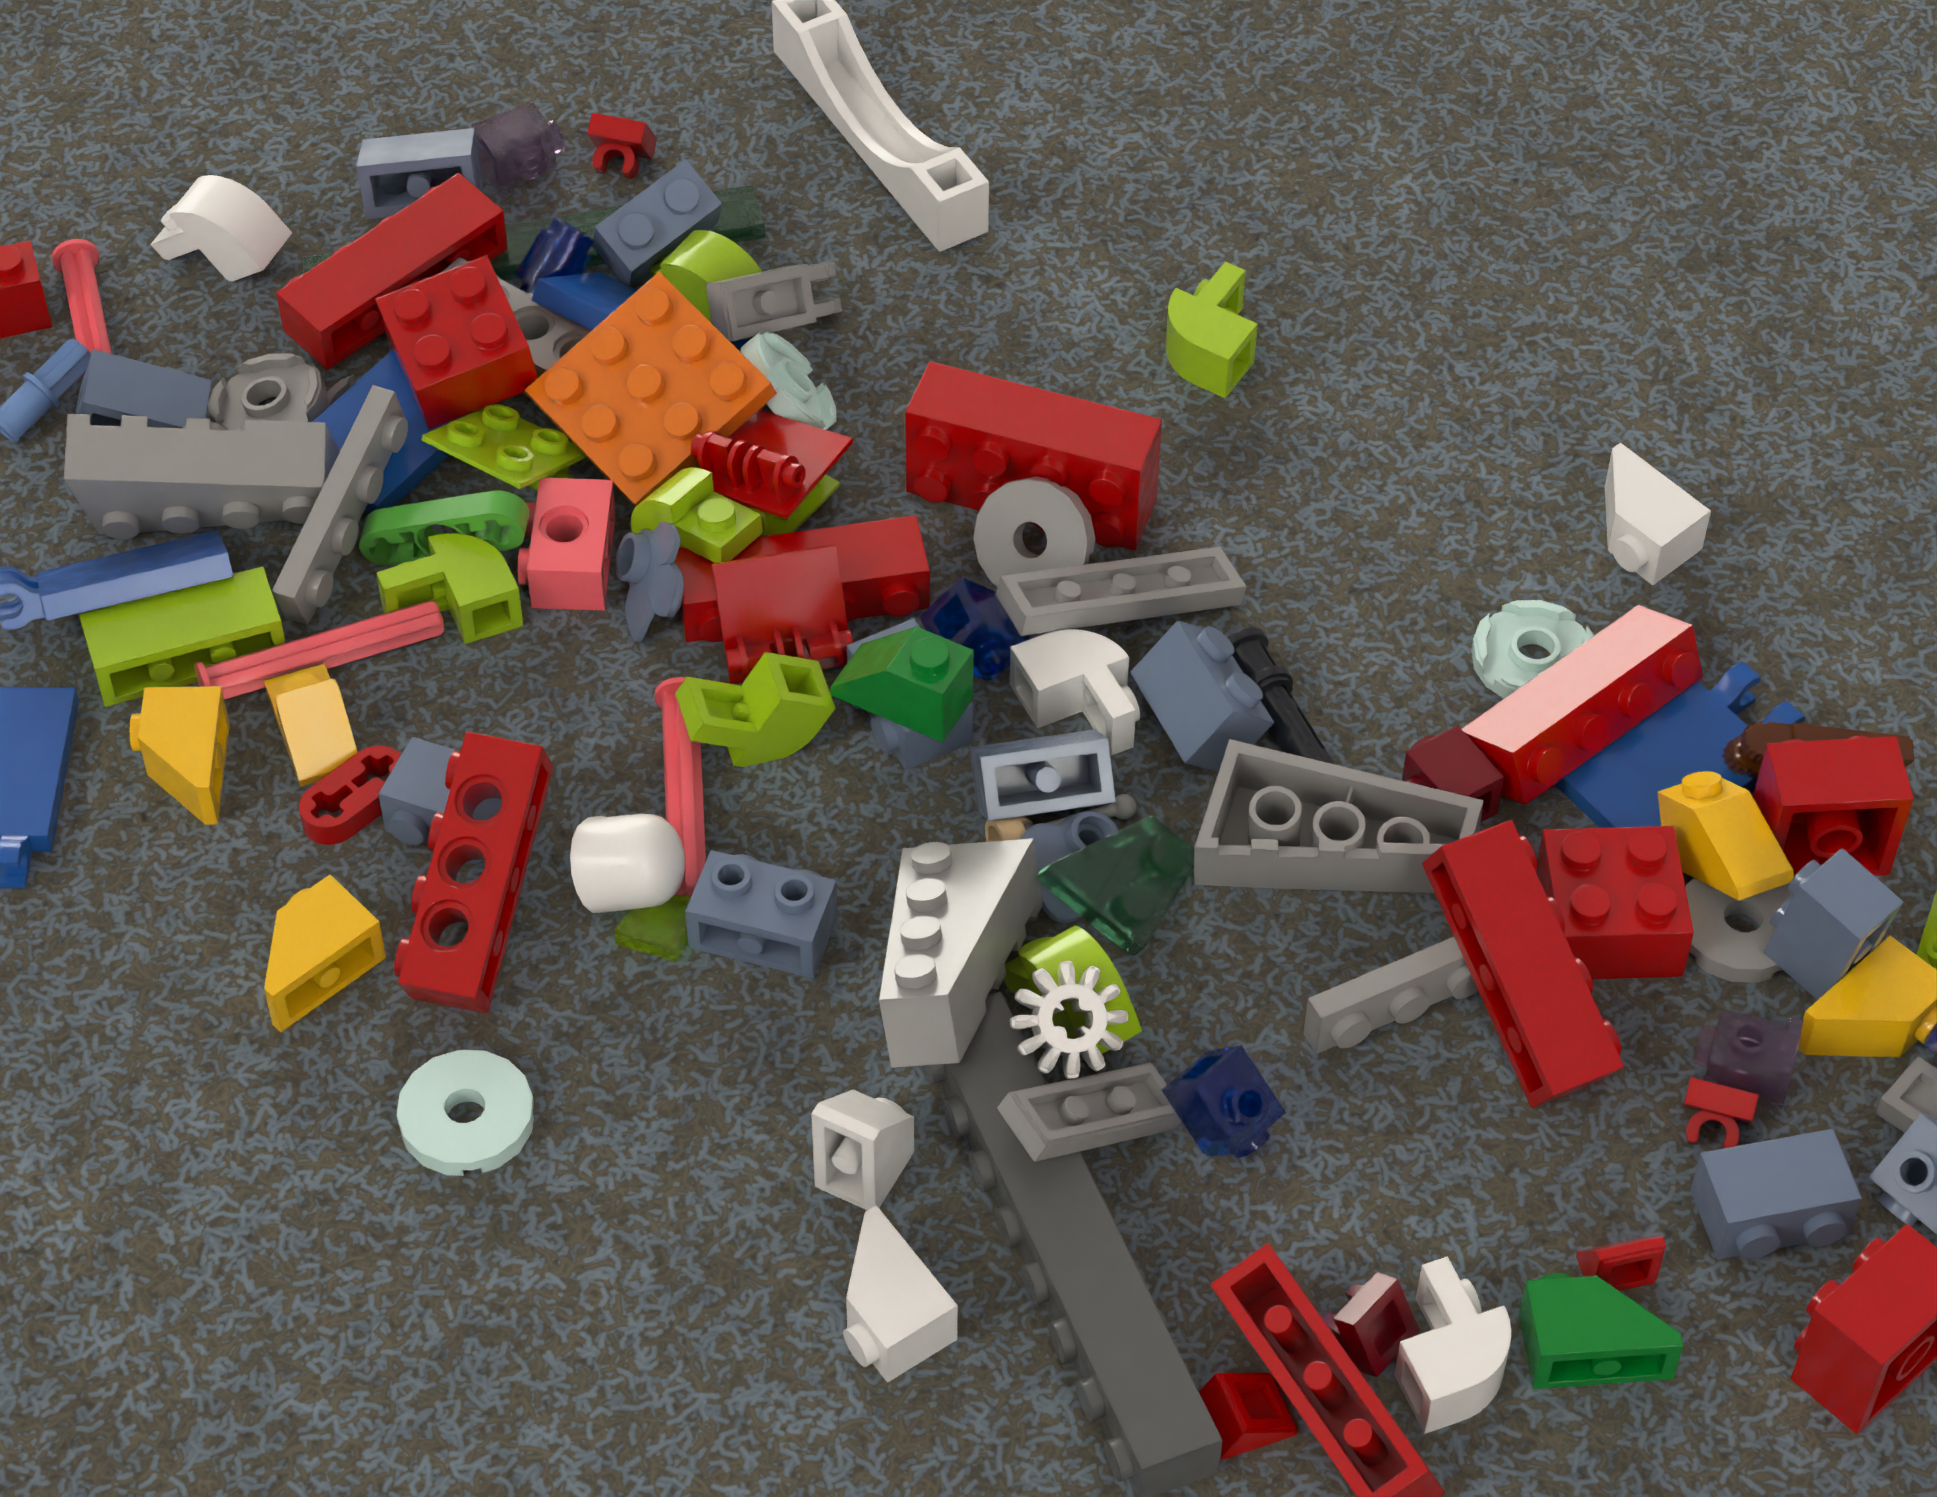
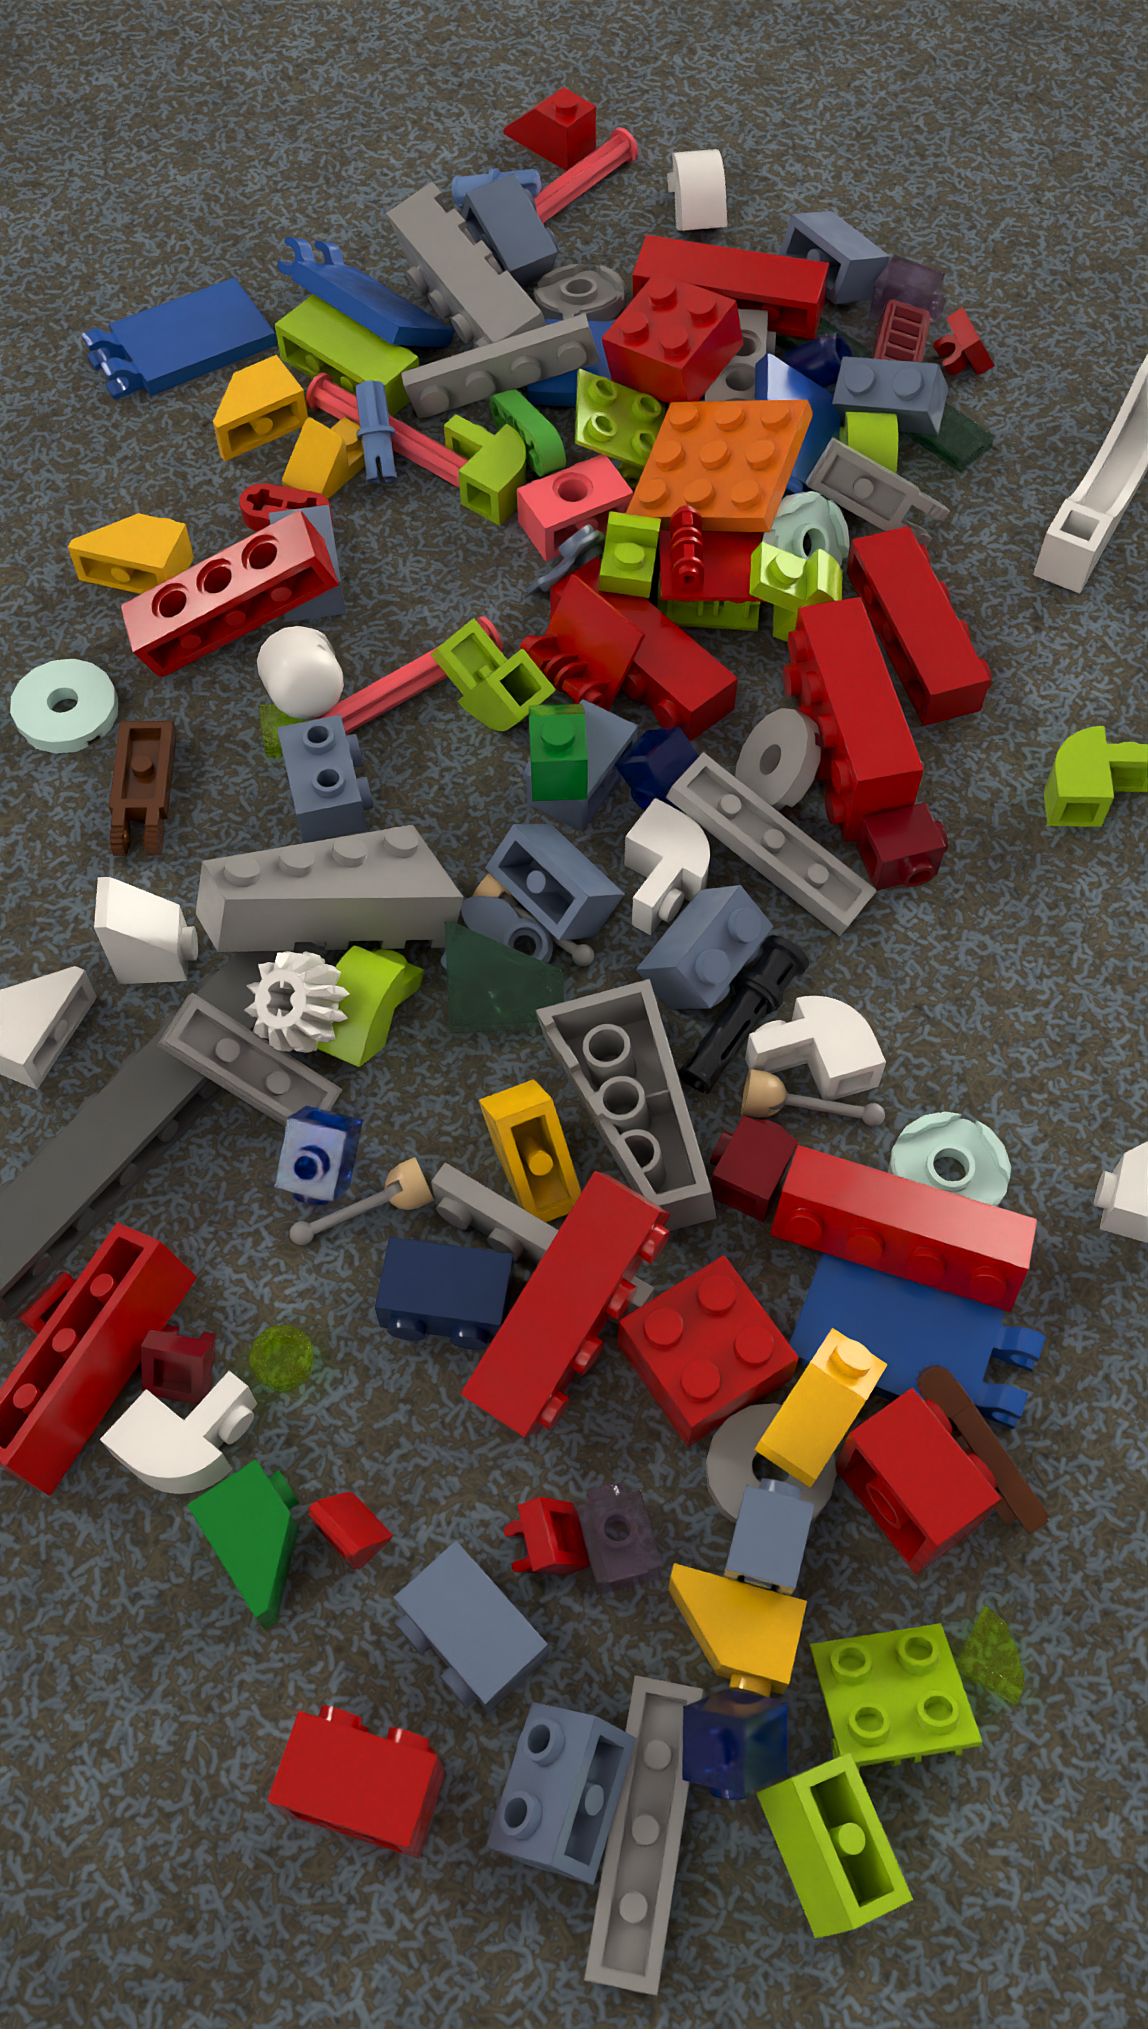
camera: 60 degrees right, 10 degrees up
(330, 655) = (375, 431): none -> medium blue axle
(575, 184) = (901, 332): none -> dark red slope
(640, 1079) = (142, 783): none -> reddish brown hinge
(859, 411) = (793, 583): none -> lime brick
(888, 349) = (918, 625): none -> red brick
(1187, 504) = (902, 846): none -> dark red brick
(1293, 1058) = (403, 1188): none -> hinge
(1317, 933) = (532, 1149): none -> yellow slope
(1359, 661) = (826, 1037): none -> white brick
(1375, 740) = (766, 1095): none -> hinge
(1406, 1242) = (282, 1357): none -> clear neon green tile
(1430, 1073) = (444, 1292): none -> dark blue brick

